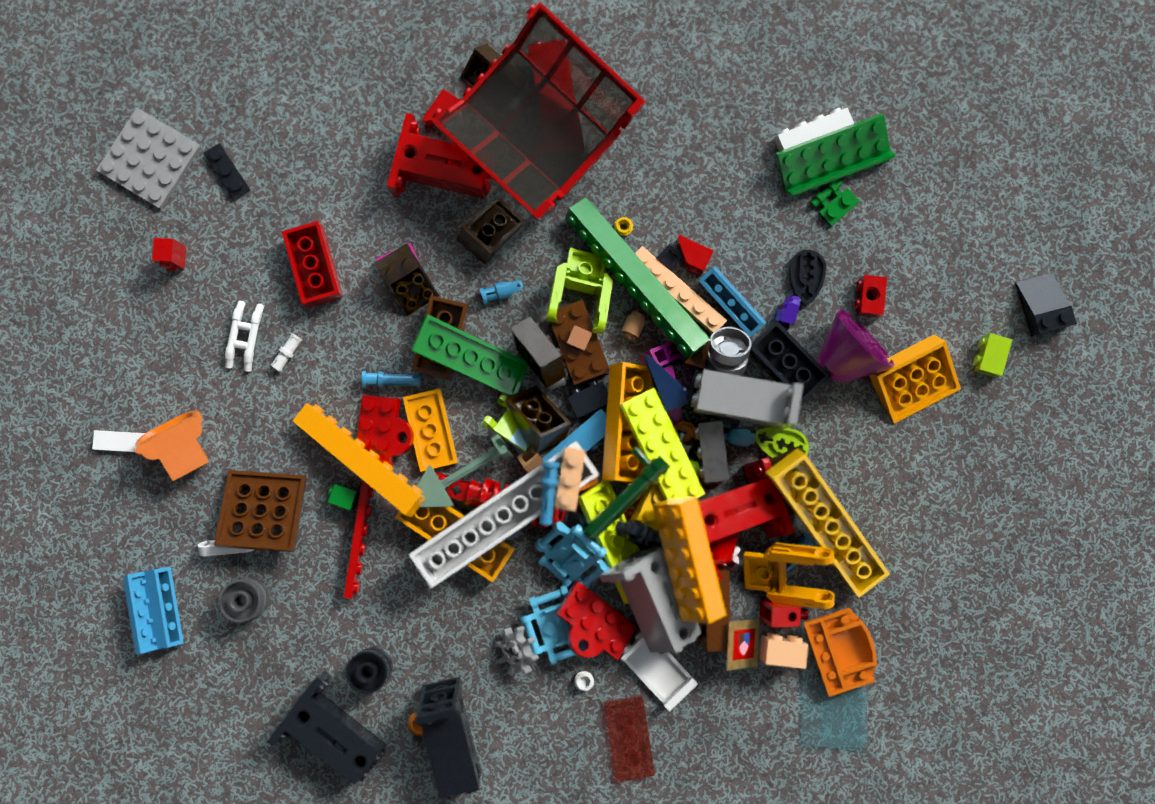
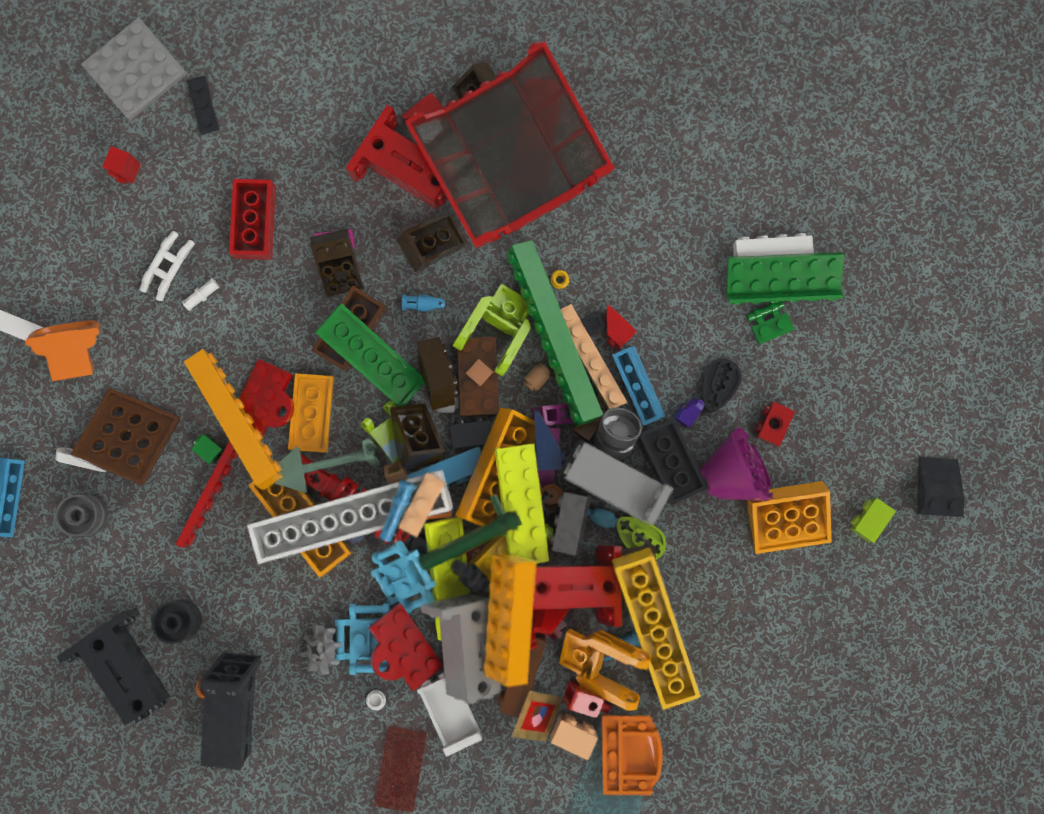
camera: 20 degrees right, 0 degrees up
(380, 379) = (281, 350): dark azure pin -> none

